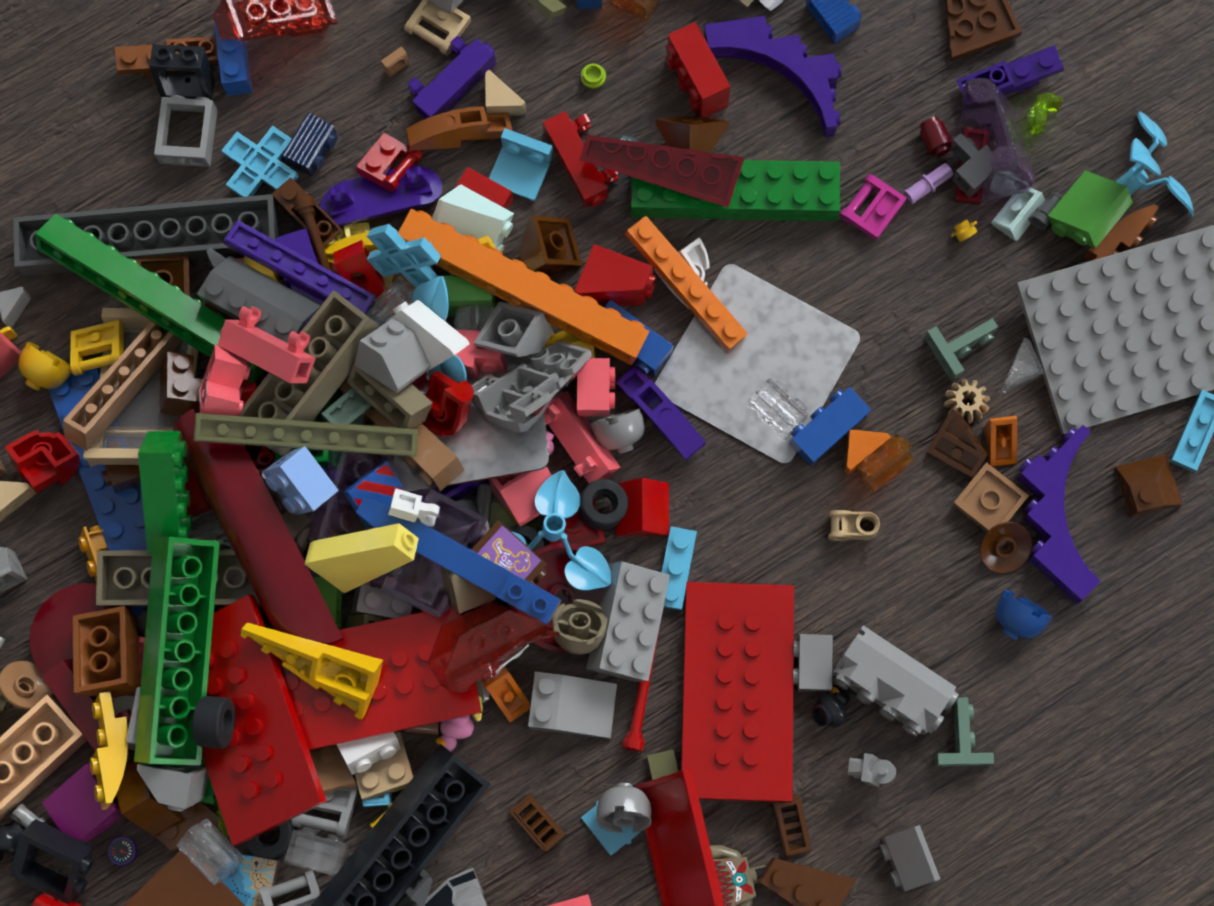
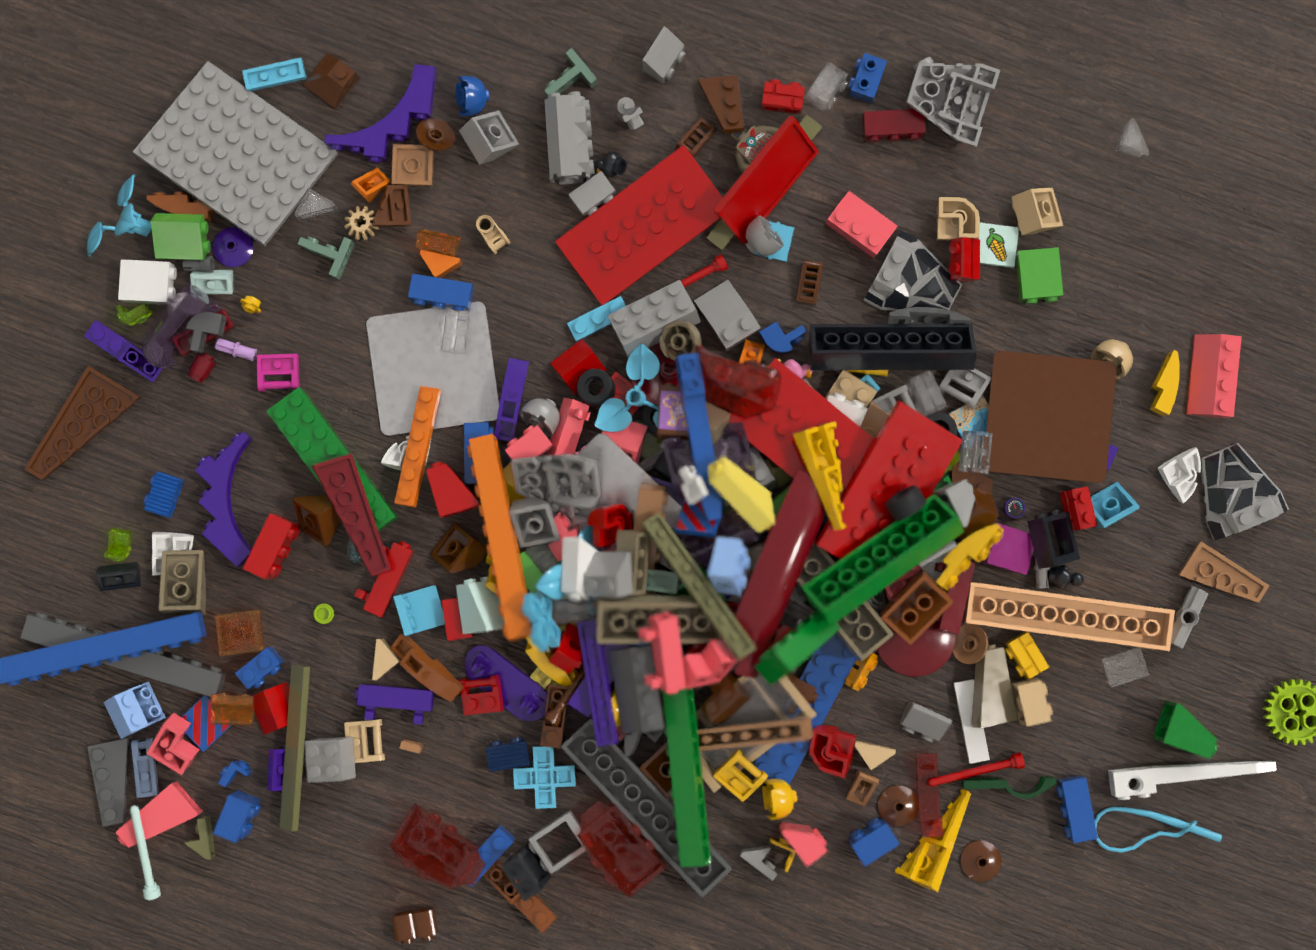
camera: 130 degrees left, 10 degrees up
(129, 174) = (618, 848): none -> clear red slope
(499, 737) = (777, 341): none -> blue brick
(961, 602) = (488, 137): none -> light grey slope
(1028, 261) = (239, 254): none -> dark purple dish
(1066, 146) = (146, 282): none -> white brick

